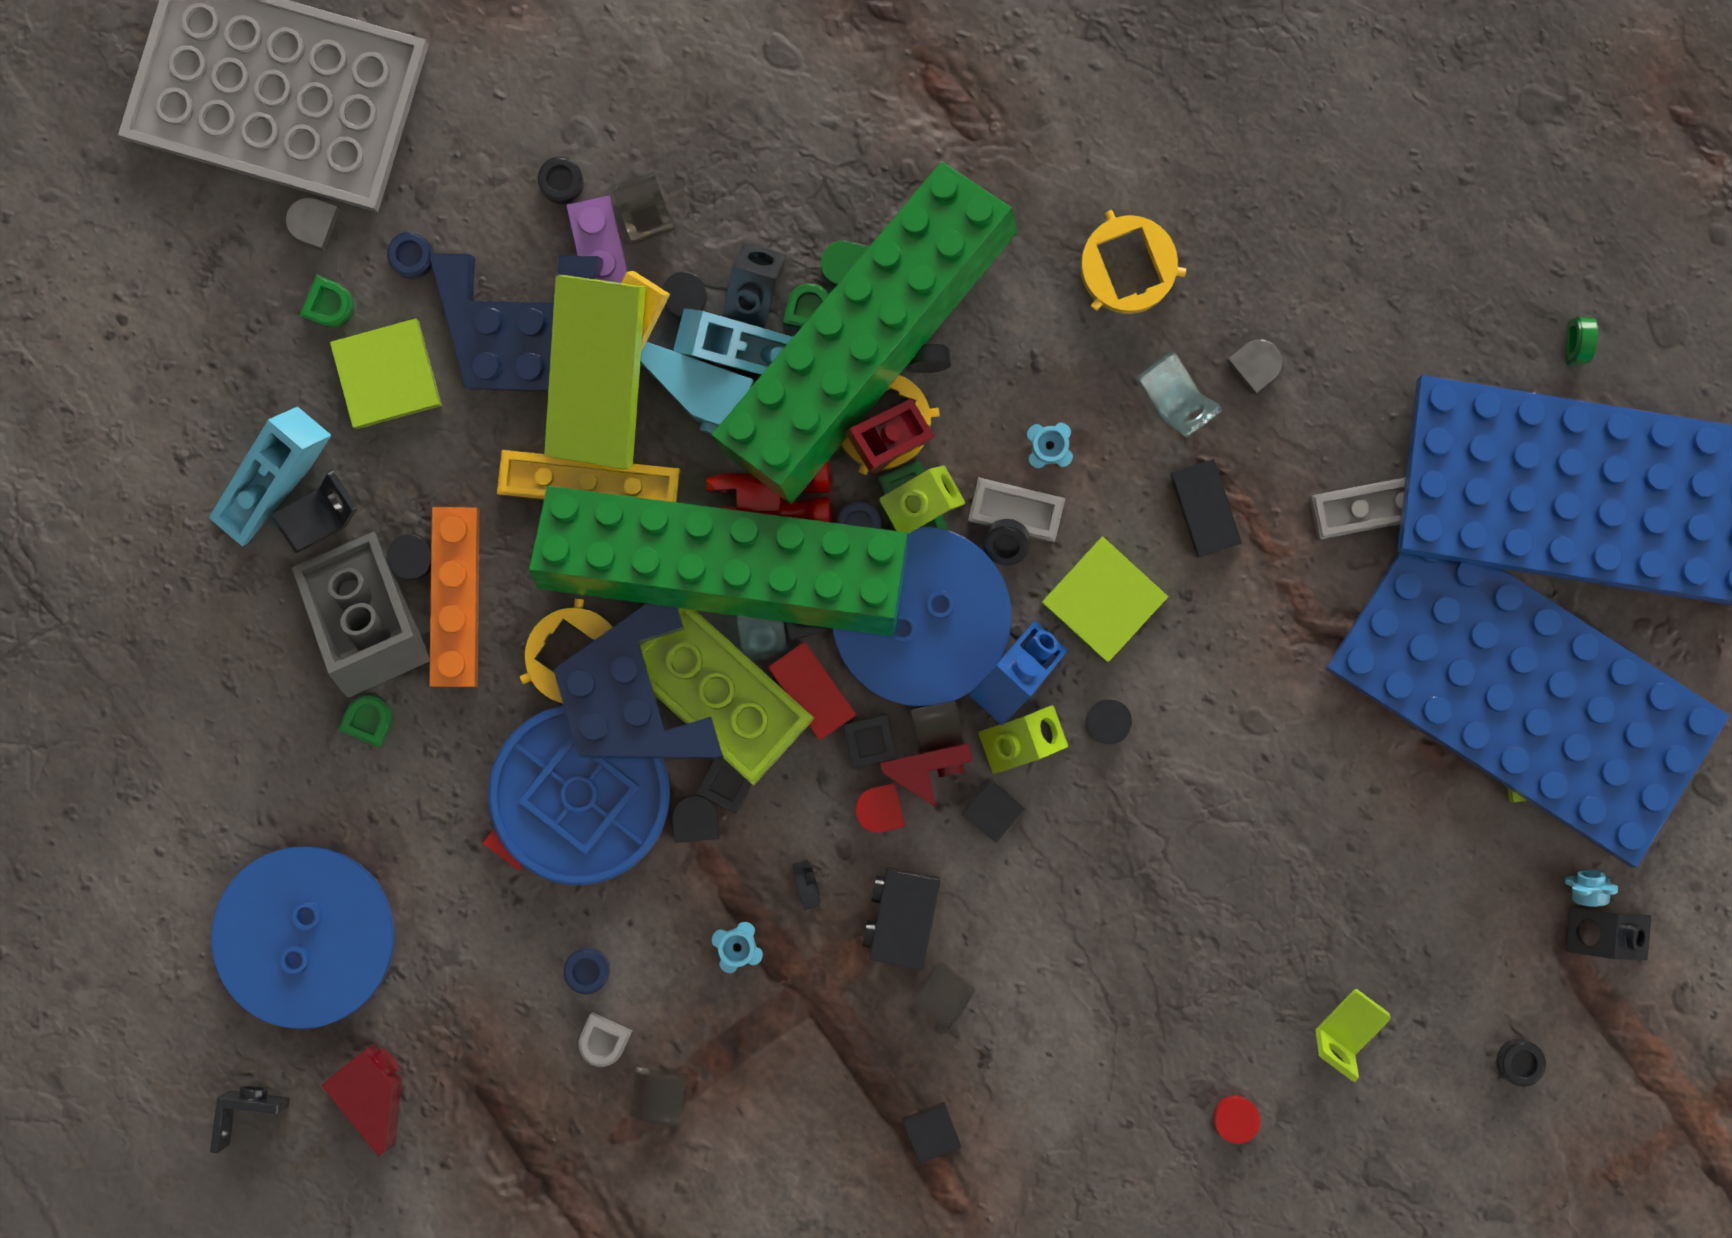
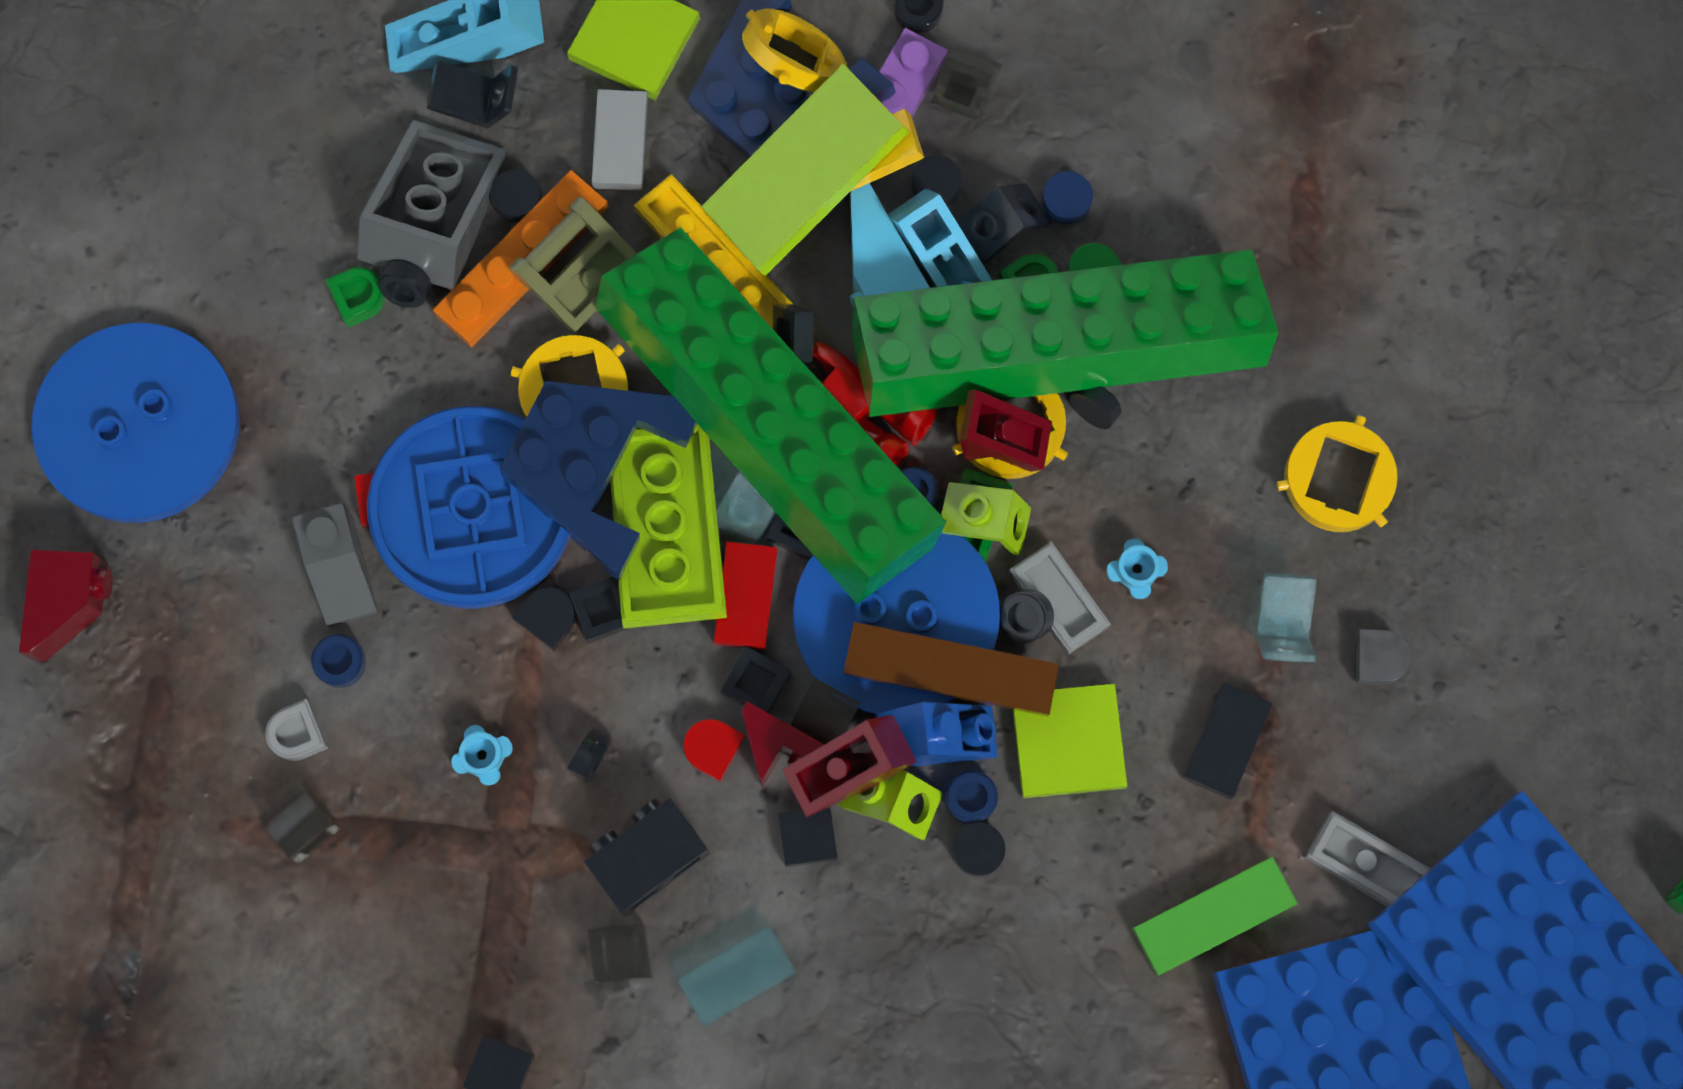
camera: 40 degrees right, 10 degrees down
(395, 686) = (404, 284): none -> black tile
(444, 456) = (619, 140): none -> light grey tile
(478, 306) = (790, 27): none -> yellow piece
(511, 581) = (575, 289): none -> olive plate
(527, 912) = (335, 564): none -> dark grey slope
(685, 487) = (795, 328): none -> black tile
(781, 228) = (1067, 197): none -> dark blue tile
(986, 748) = (849, 764): none -> dark red slope
(991, 623) = (951, 669): none -> reddish brown tile
(1027, 939) = (736, 976): none -> clear light blue tile
(1074, 692) = (971, 797): none -> dark blue tile
(1294, 630) = (1214, 916): none -> bright green tile

